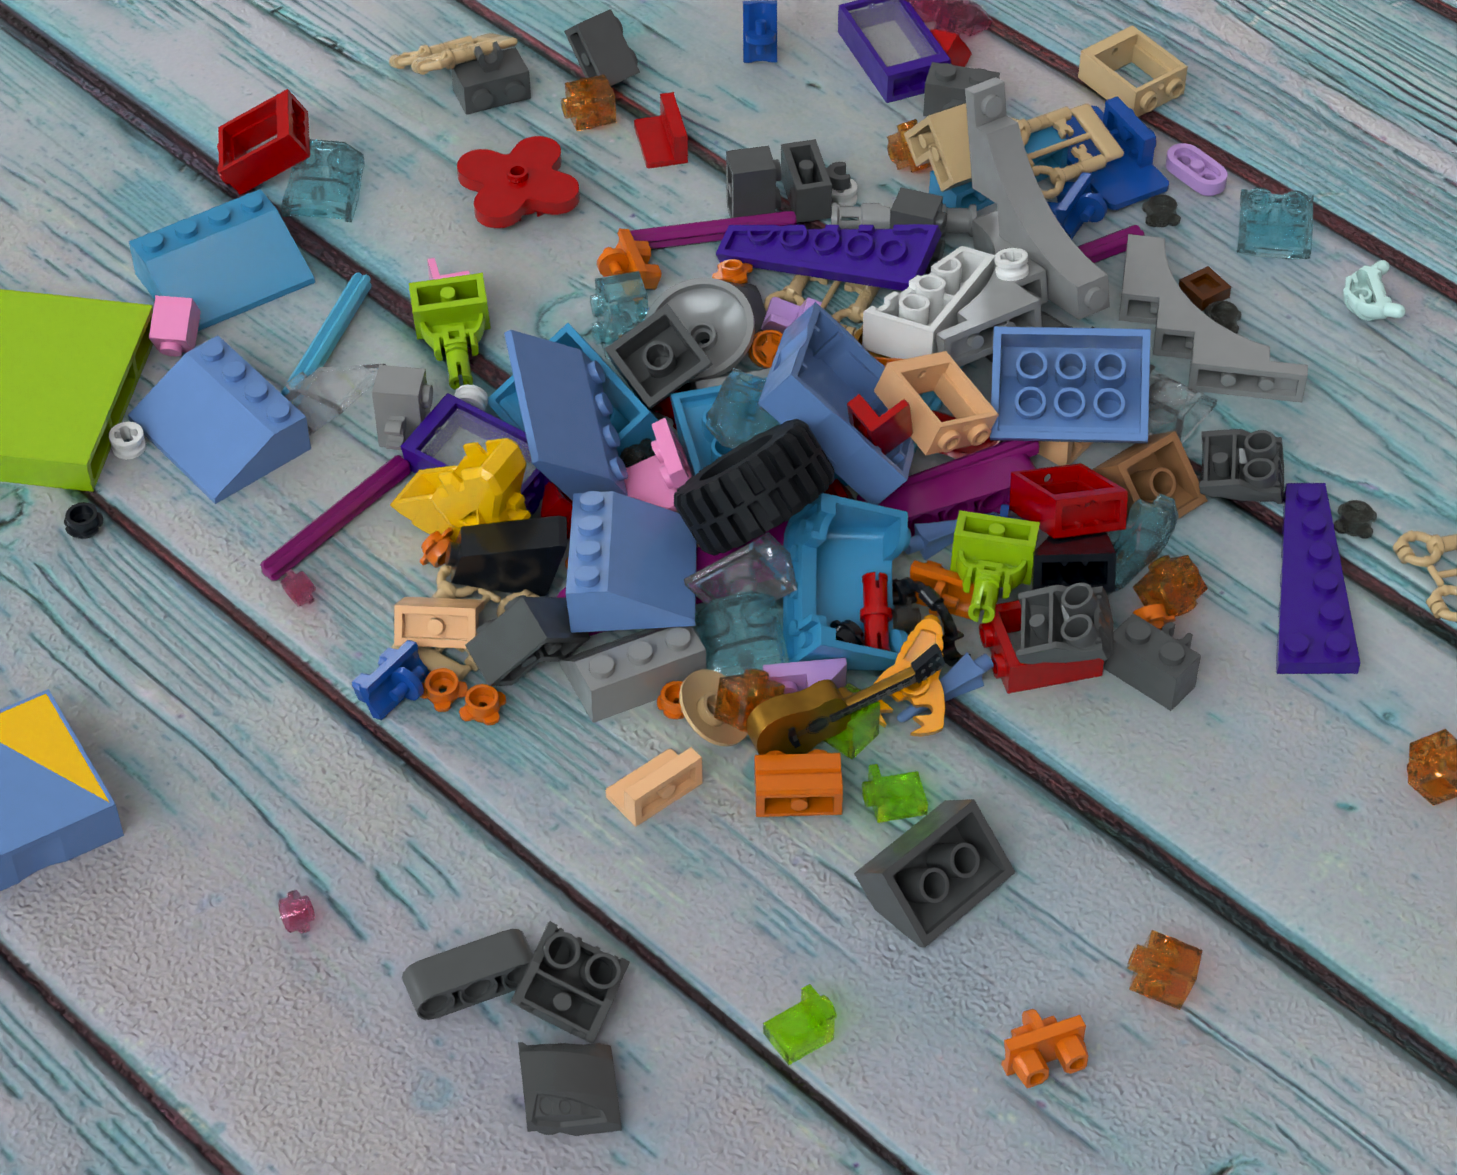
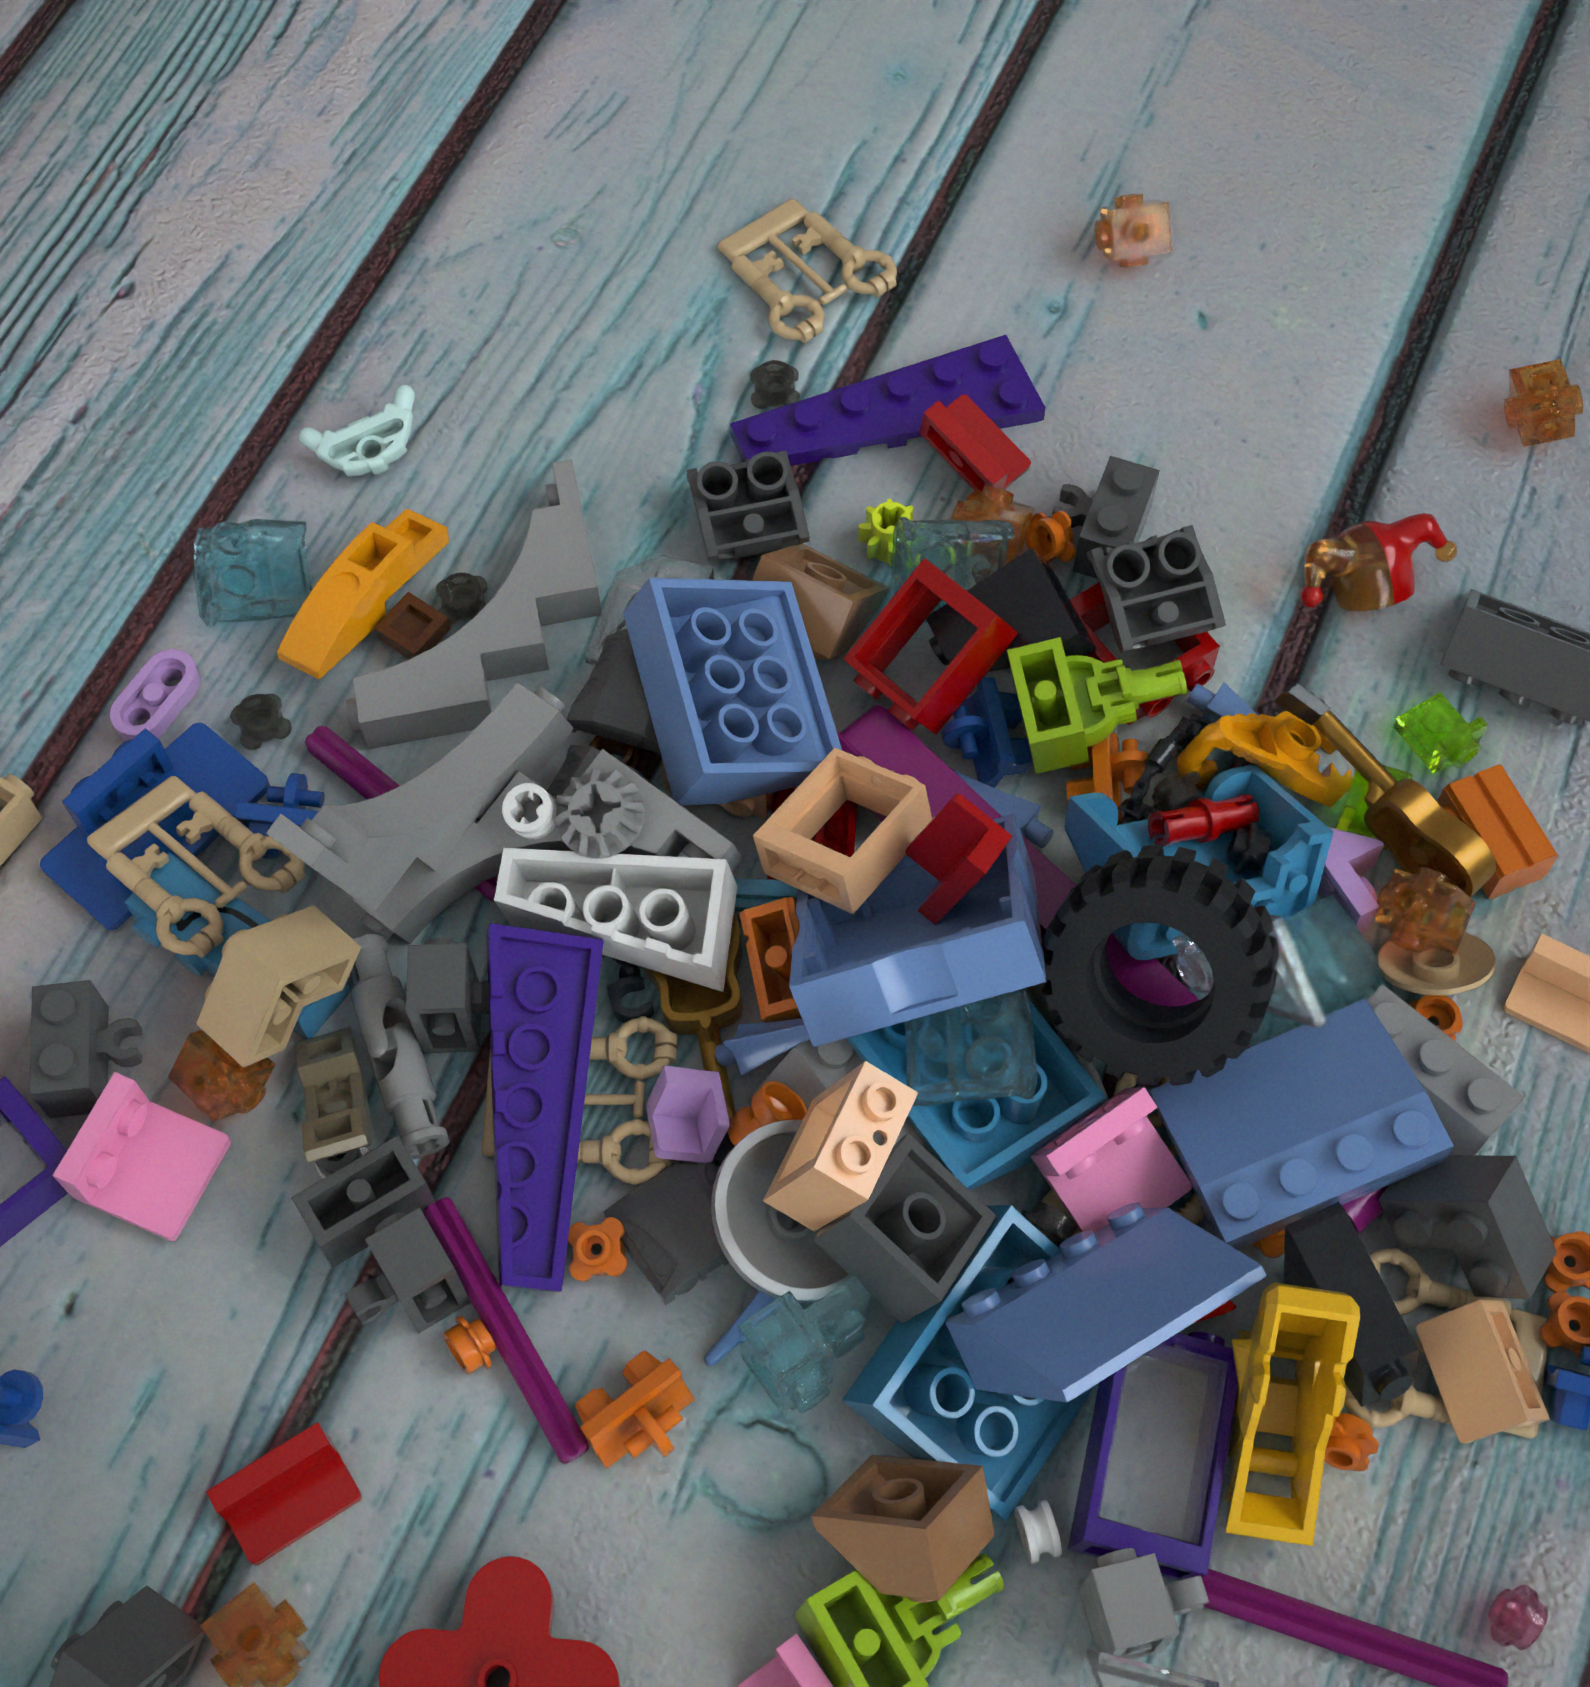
camera: 110 degrees left, 15 degrees up
(482, 326) = (909, 1523): none -> medium nougat slope
(704, 210) = (469, 1344): none -> orange plate
(713, 312) = (834, 1152): none -> light nougat window
(857, 171) = (333, 1096): none -> dark tan slope
(886, 103) = (141, 1160): none -> bright pink bracket
(1004, 283) = (618, 827): none -> light grey gear
(1055, 799) = (1372, 562): none -> clear orange piece
(1193, 537) = (880, 527): none -> neon yellow gear
(1244, 261) = (354, 590): none -> light orange slope
(1251, 602) = (973, 444): none -> red panel

